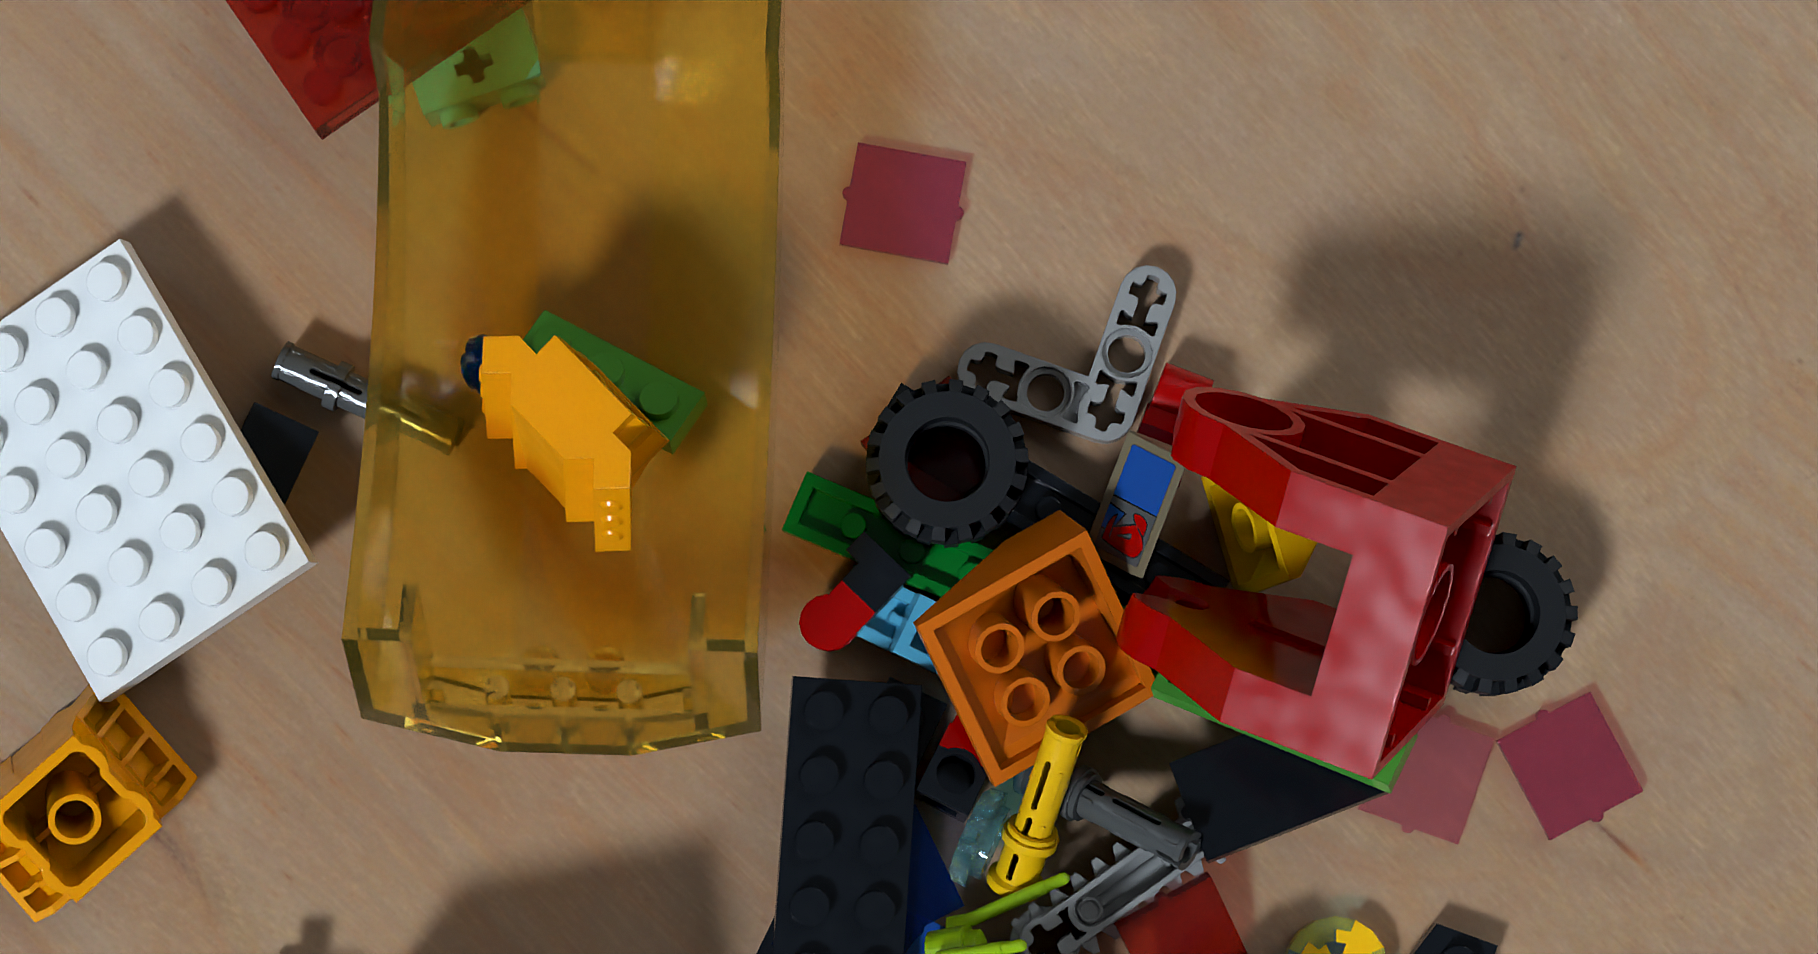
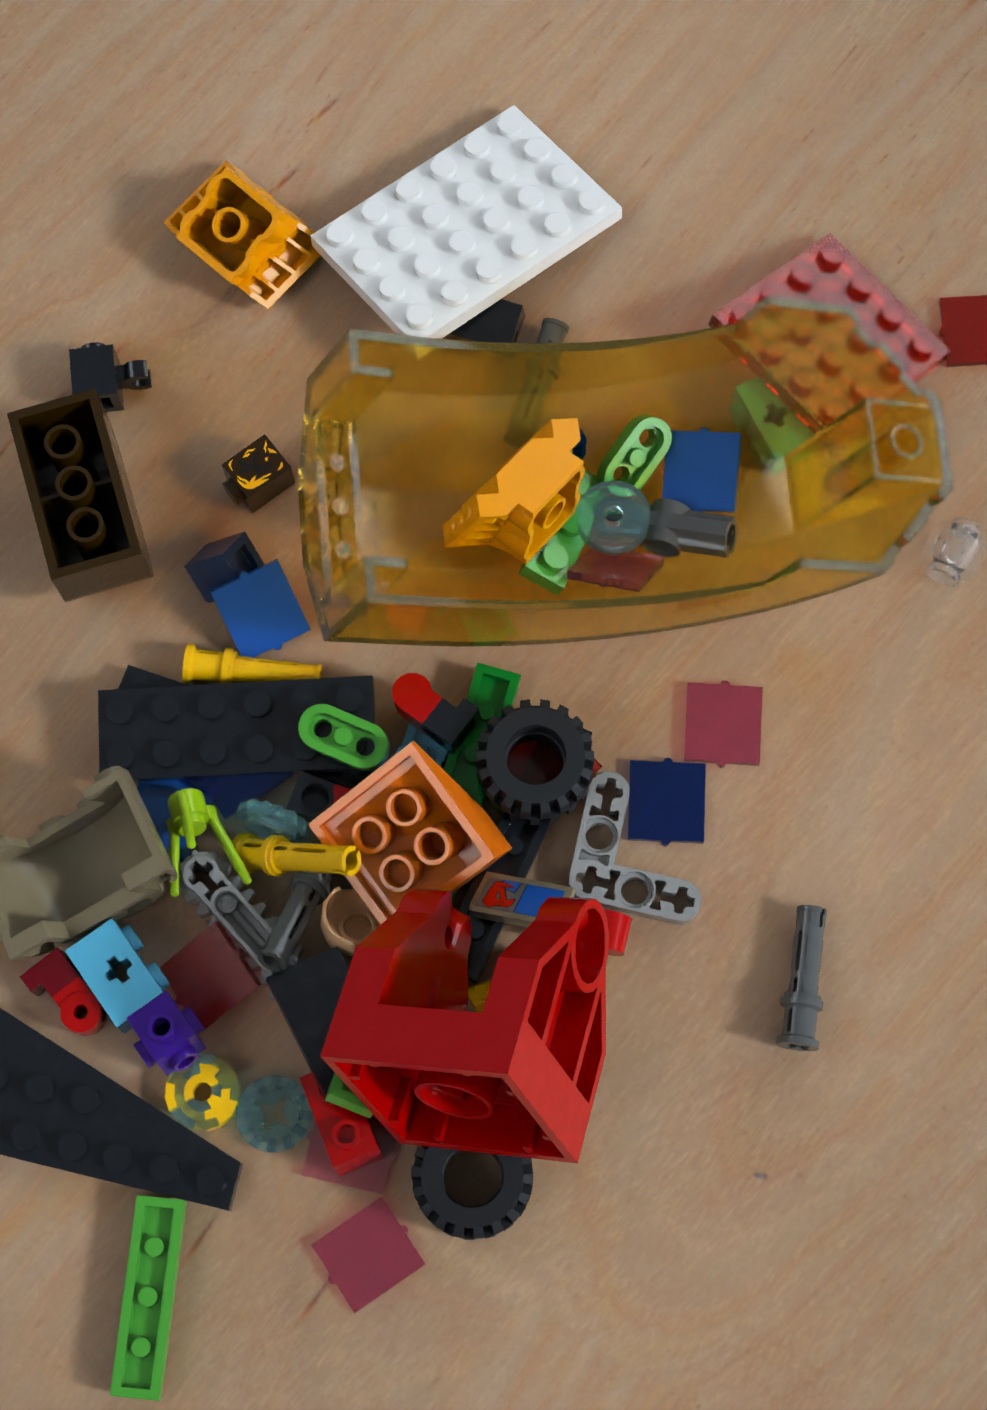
camera: 85 degrees right, 10 degrees down
(459, 816) = (257, 474): none -> dark brown brick
(516, 269) = (637, 459): none -> bright green plate
(548, 179) = (703, 470): none -> blue piece
(581, 304) = (610, 536): none -> clear light blue piece
(594, 873) = (222, 562): none -> dark blue panel
(625, 239) = (680, 529): none -> dark grey piece
(667, 828) = (260, 609): none -> blue piece
(679, 317) = (622, 571): none -> piece
(746, 879) = (231, 668): none -> yellow pin
(885, 722) = (344, 738): none -> bright green plate
(1003, 295) = (666, 802): none -> clear blue piece
(1135, 744) = (346, 920): none -> light nougat hair
(1298, 151) = (802, 998): none -> dark grey pin
(1405, 870) = (252, 1120): none -> clear light blue gear
(1427, 779) = (344, 1133): none -> red brick

